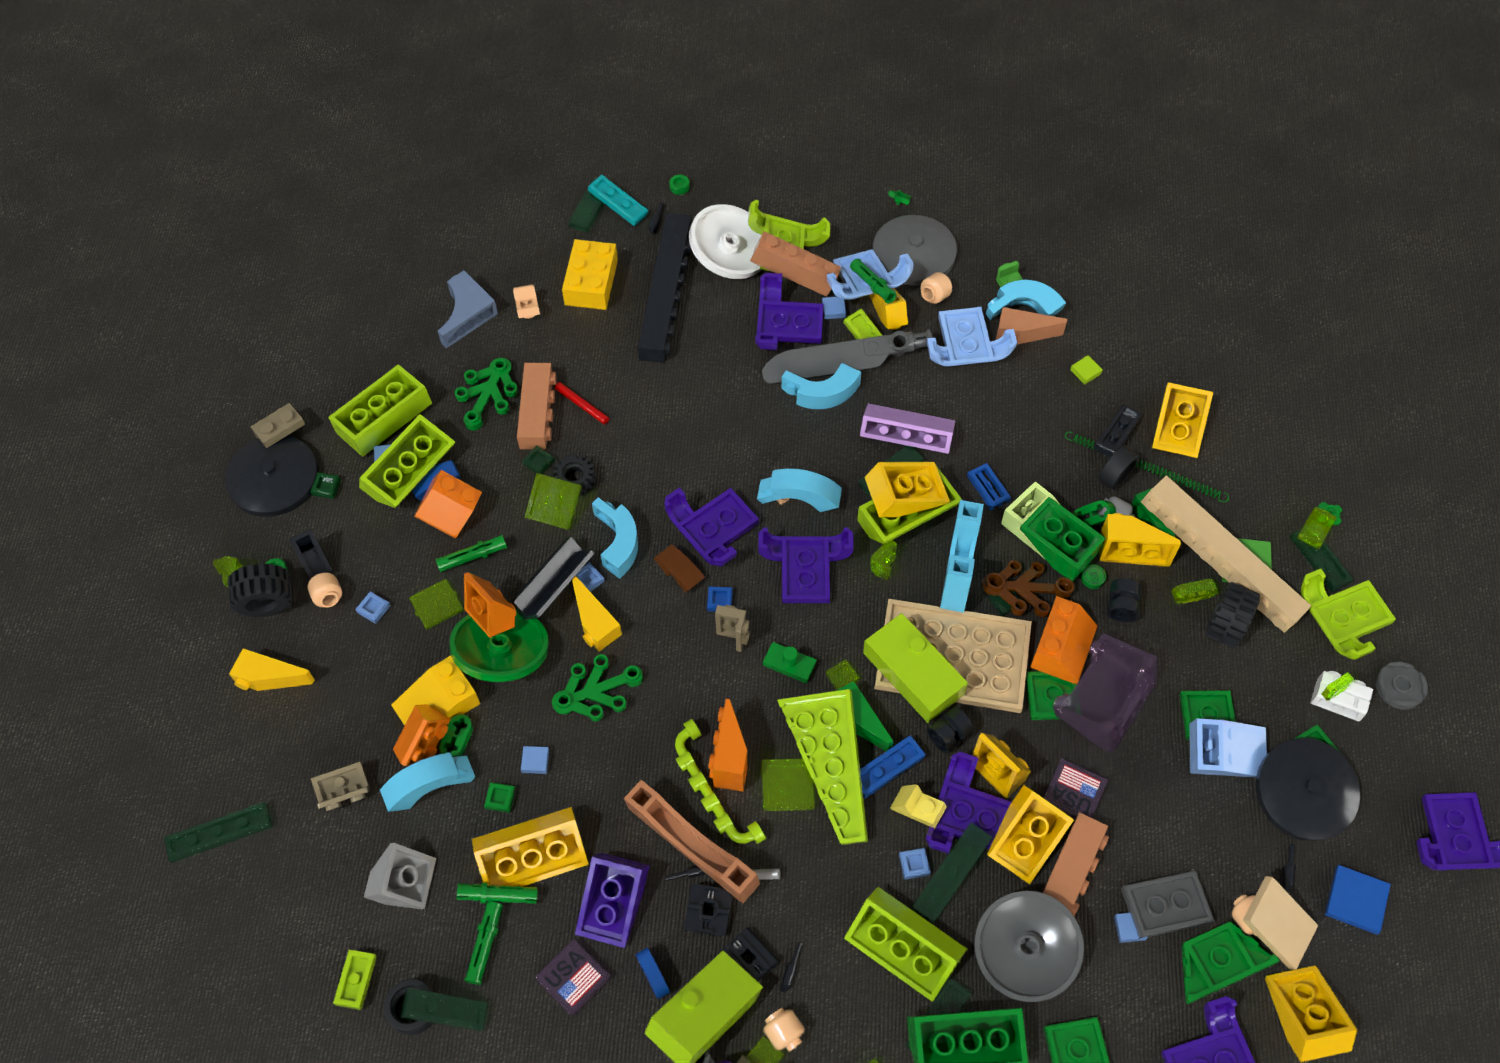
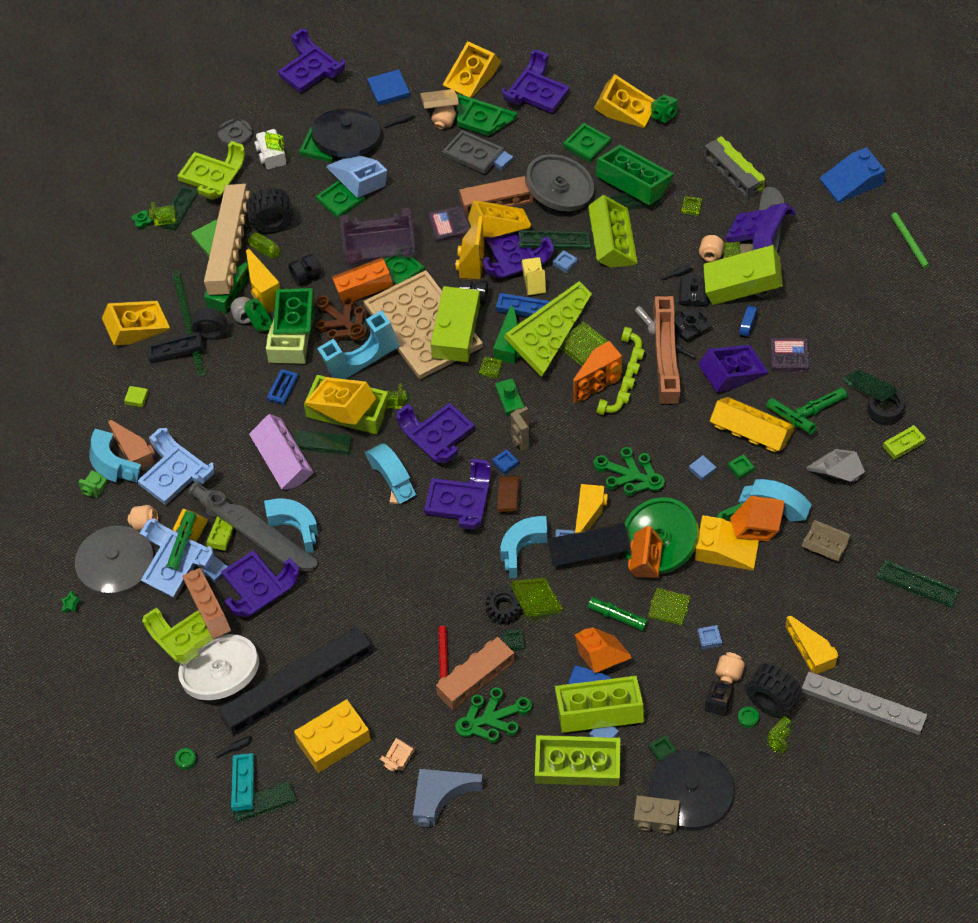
camera: 130 degrees left, 5 degrees down
(177, 670) = (864, 703): none -> light grey plate

